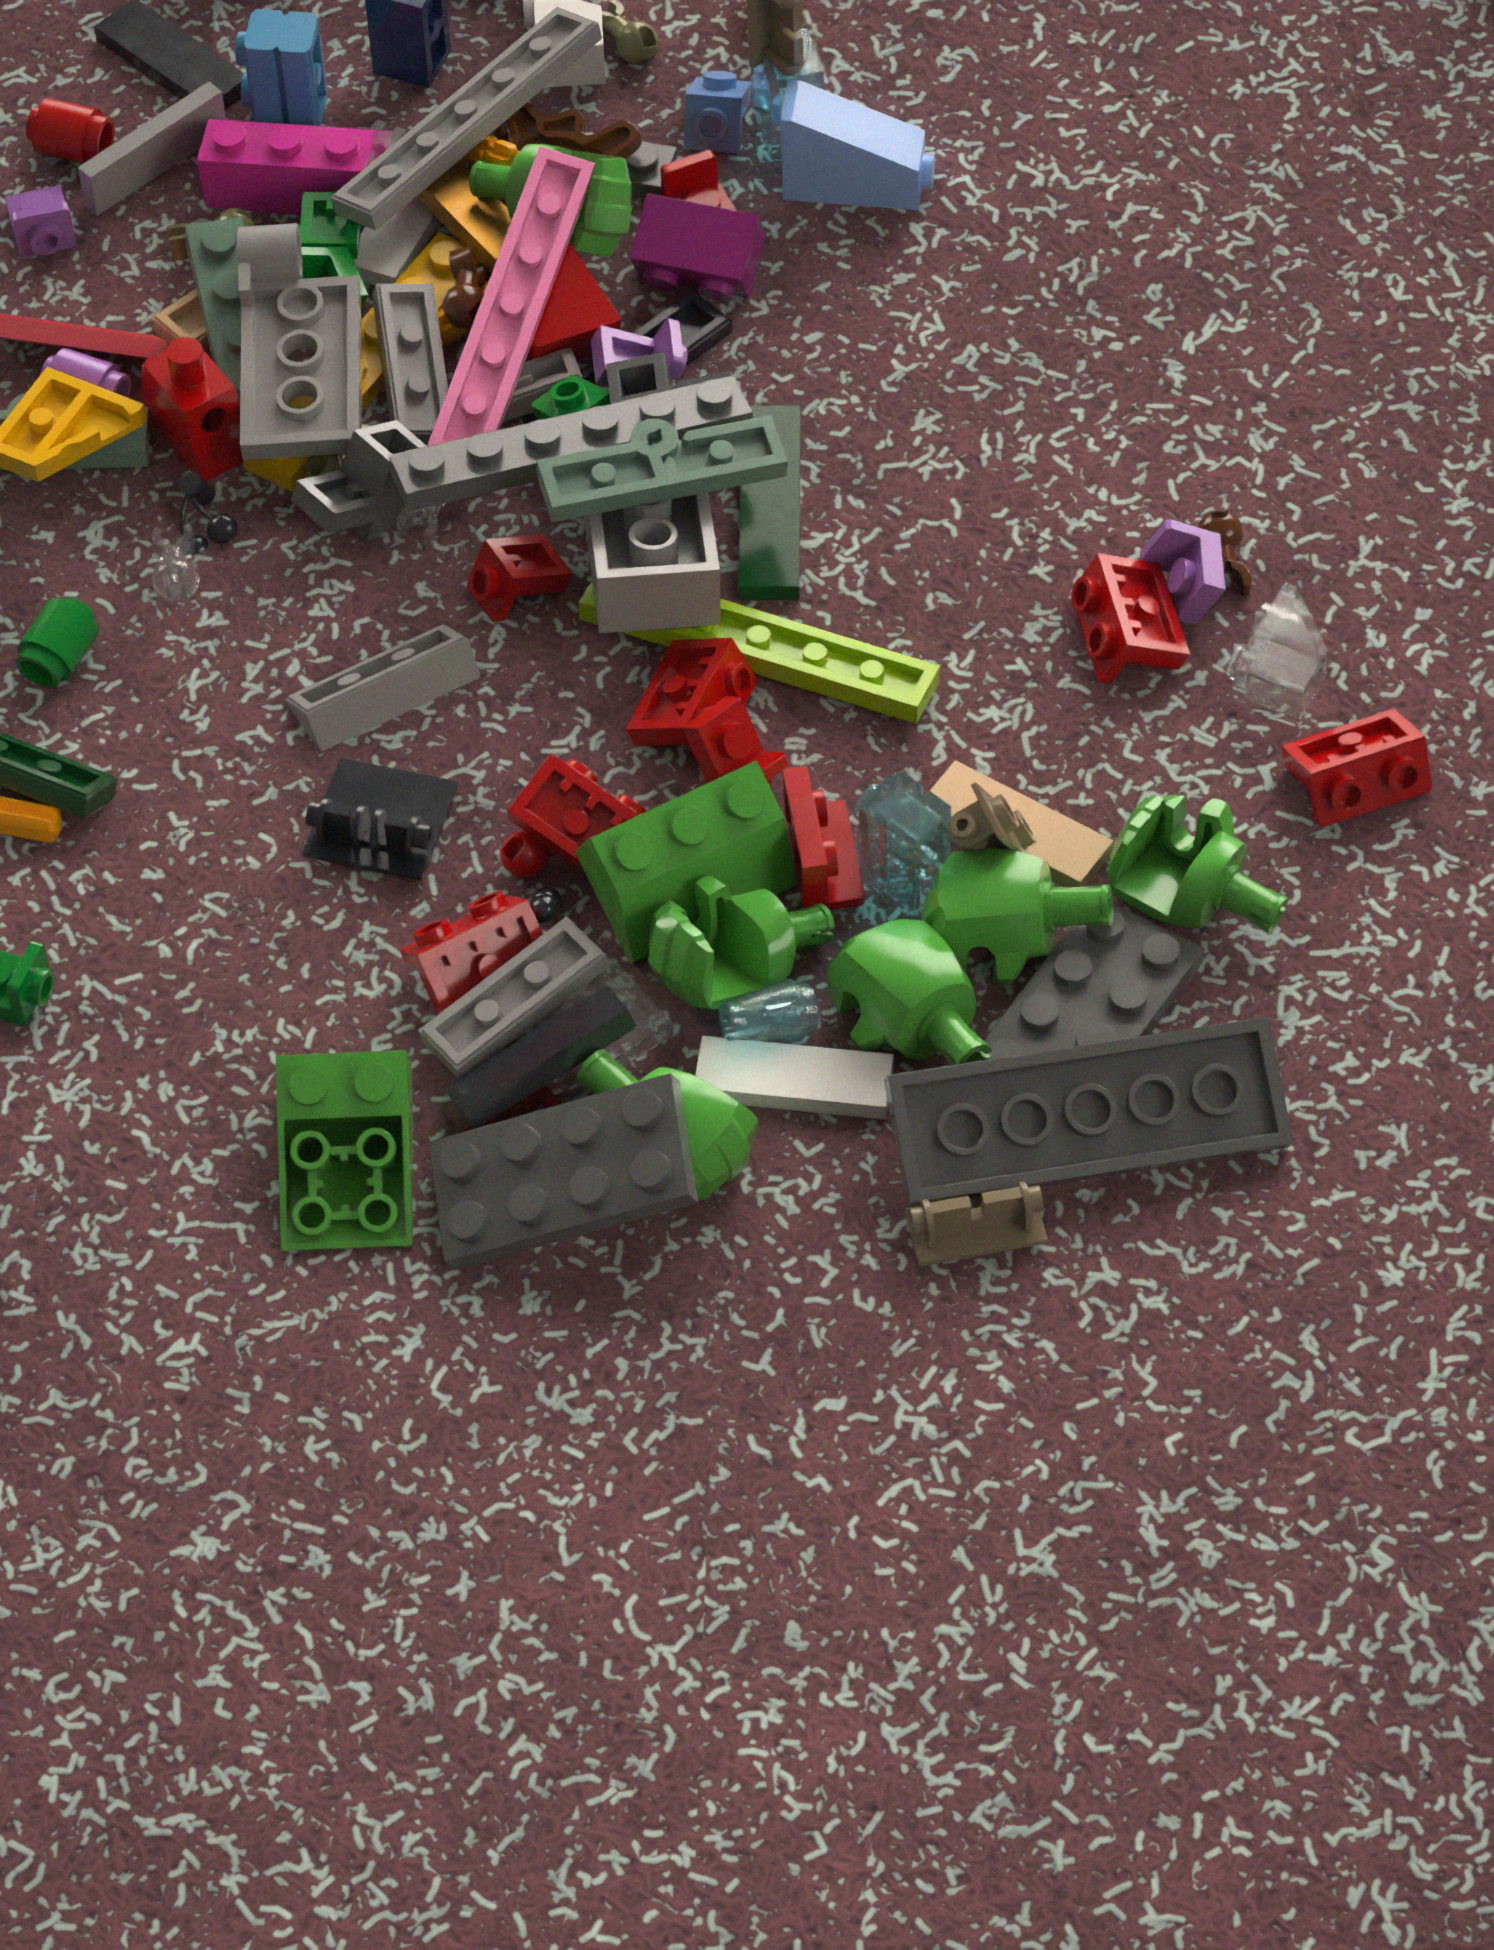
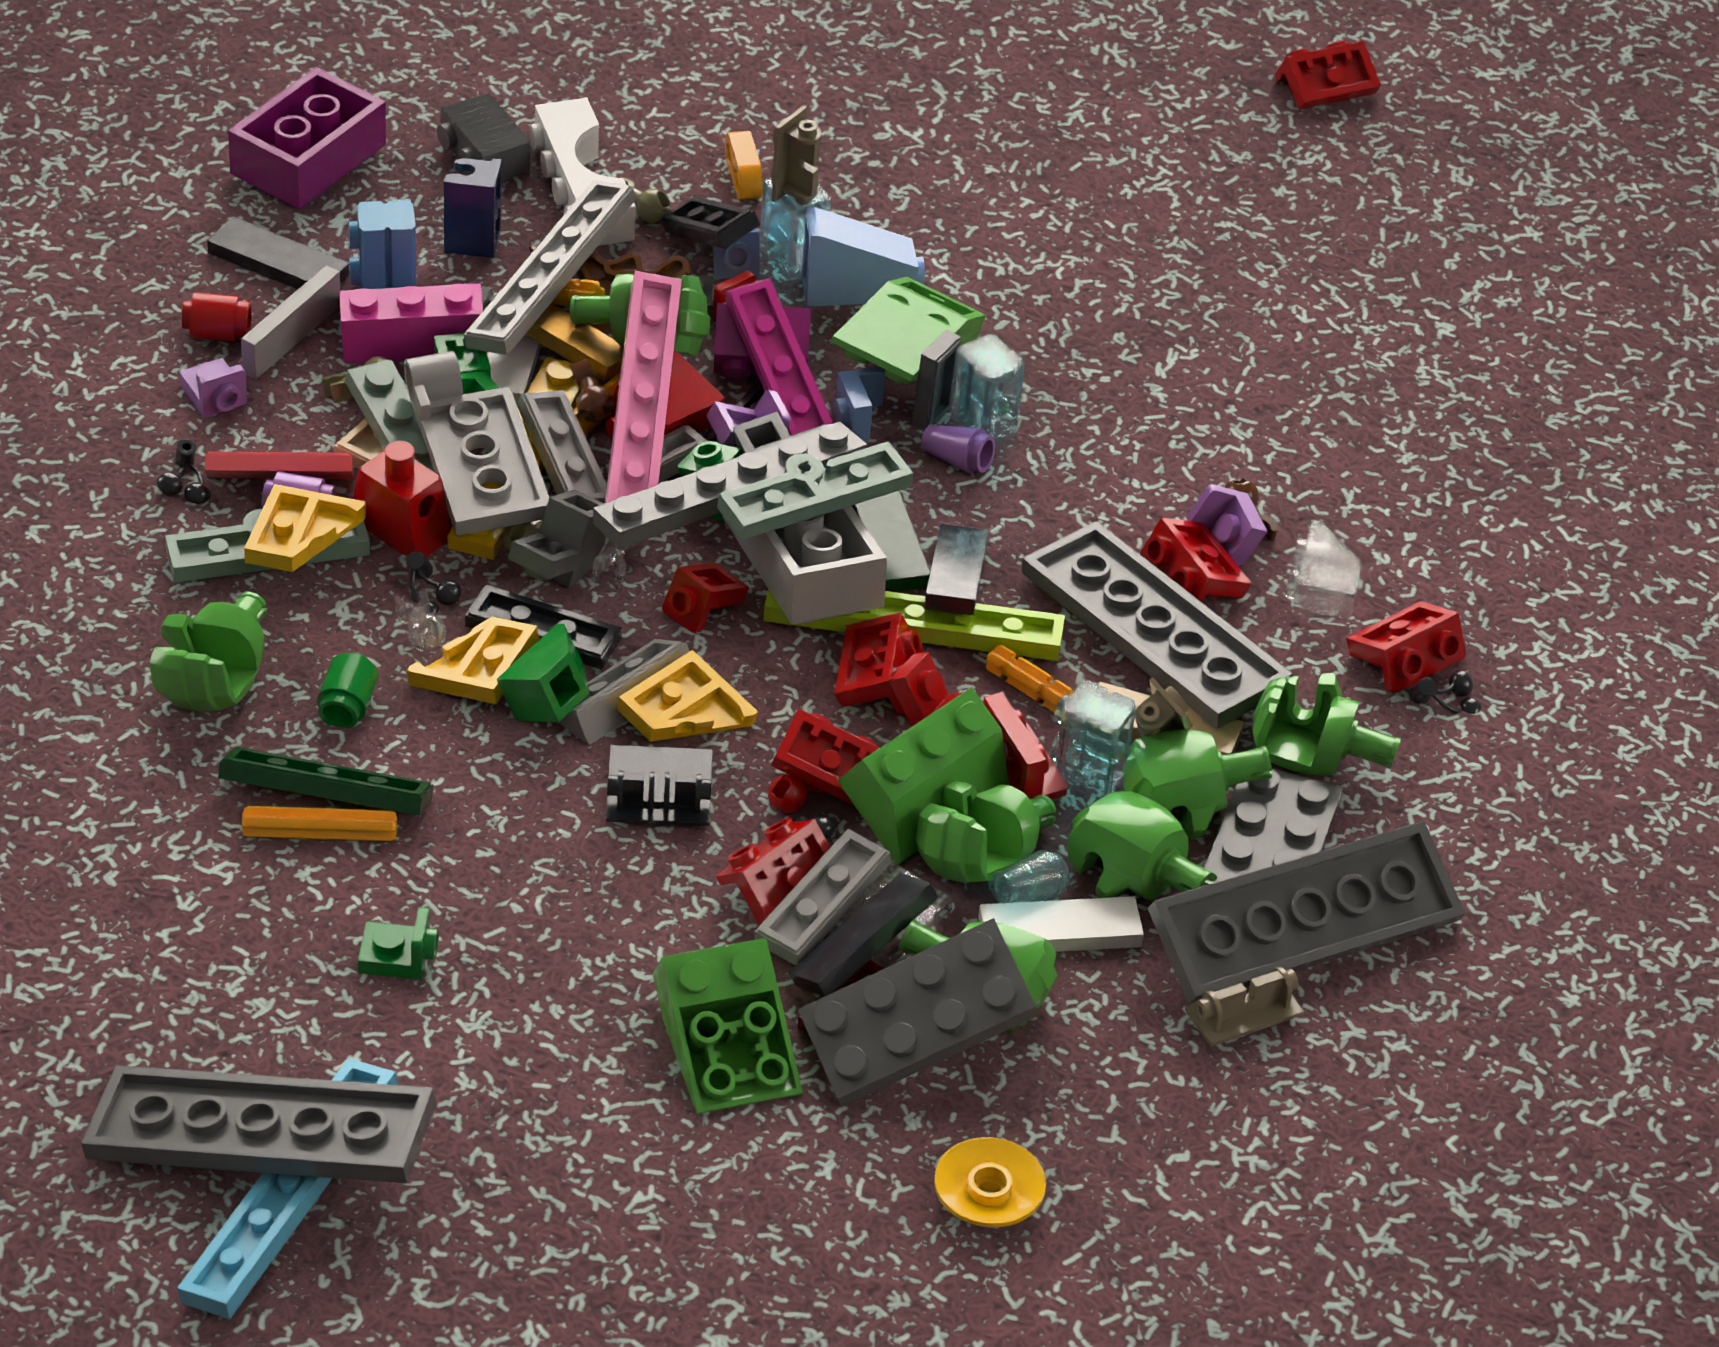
camera: 20 degrees left, 10 degrees down
(224, 626) = (476, 660): none -> yellow wing
(290, 660) = (546, 679): none -> green slope
(317, 589) = (591, 637): none -> black tile
(444, 714) = (685, 701): none -> yellow wing
(576, 1379) = (994, 1167): none -> yellow dish
(685, 78) = (709, 222): none -> black tile
(702, 278) = (777, 353): none -> dark pink tile
(791, 327) = (855, 397): none -> medium blue bracket
(828, 585) = (956, 569): none -> tile
(868, 738) = (1026, 677): none -> light orange axle
(875, 259) = (902, 324): none -> slope
(885, 329) = (936, 380): none -> dark grey tile
(896, 419) = (962, 447): none -> medium lavender cone
(942, 352) = (987, 387): none -> clear light blue brick
(1047, 692) = (1154, 622): none -> dark grey plate
(1408, 827) = (1459, 683): none -> black piece

